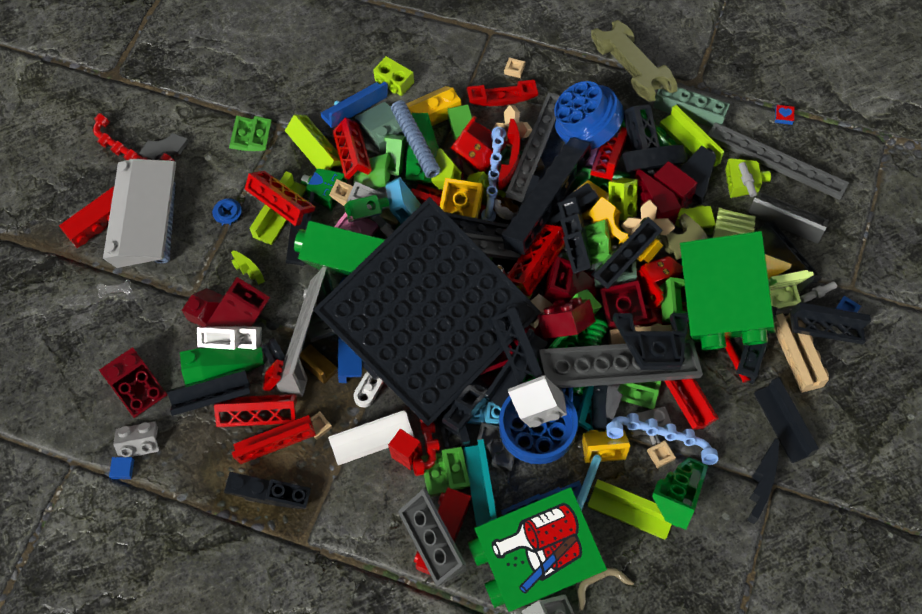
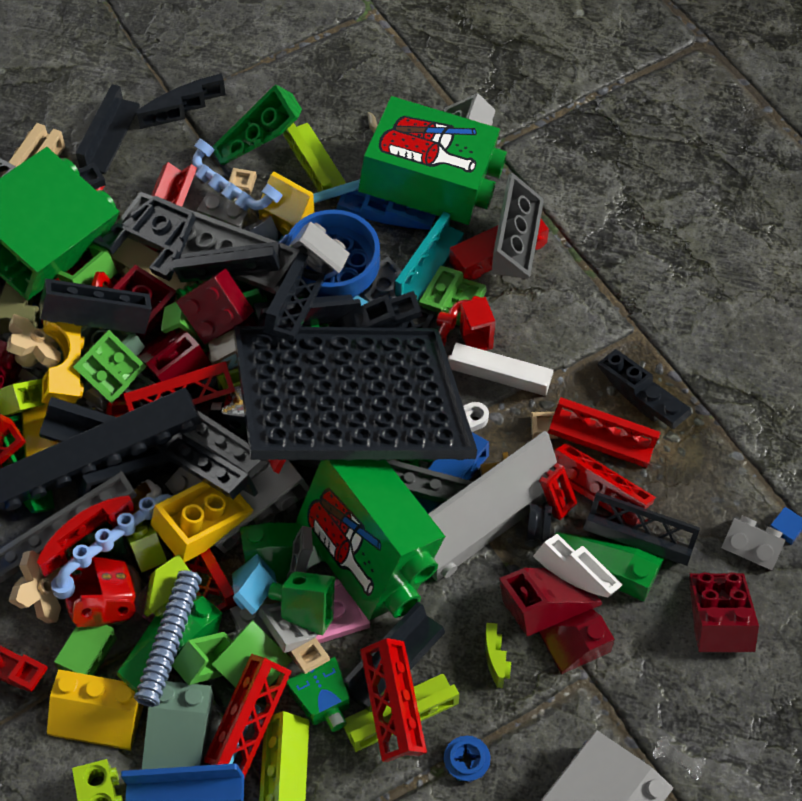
camera: 145 degrees left, 5 degrees down
(575, 235) = (117, 379): black slope -> none
(580, 342) = (237, 261): none -> black fence

